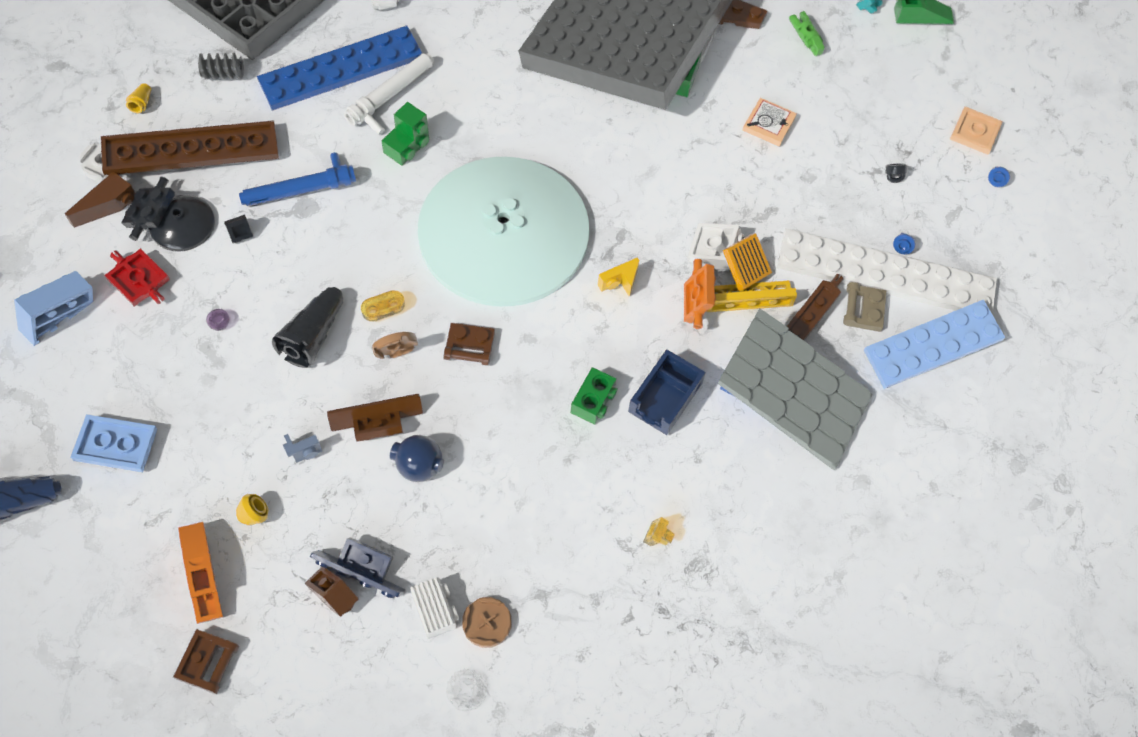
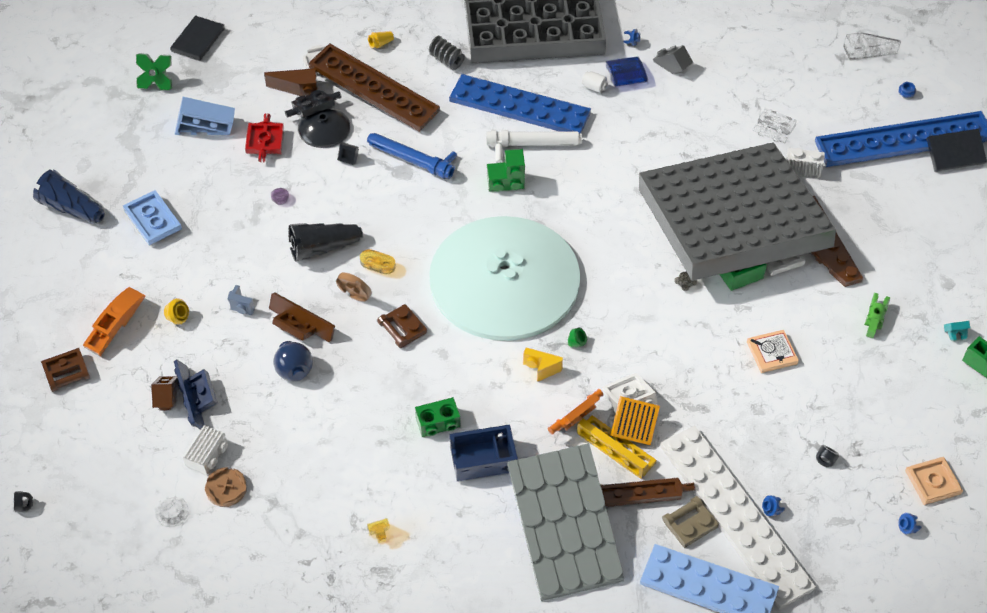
camera: 50 degrees right, 10 degrees down
(622, 231) = (577, 337): none -> green tile
(647, 116) = (685, 285): none -> clear smoke plate

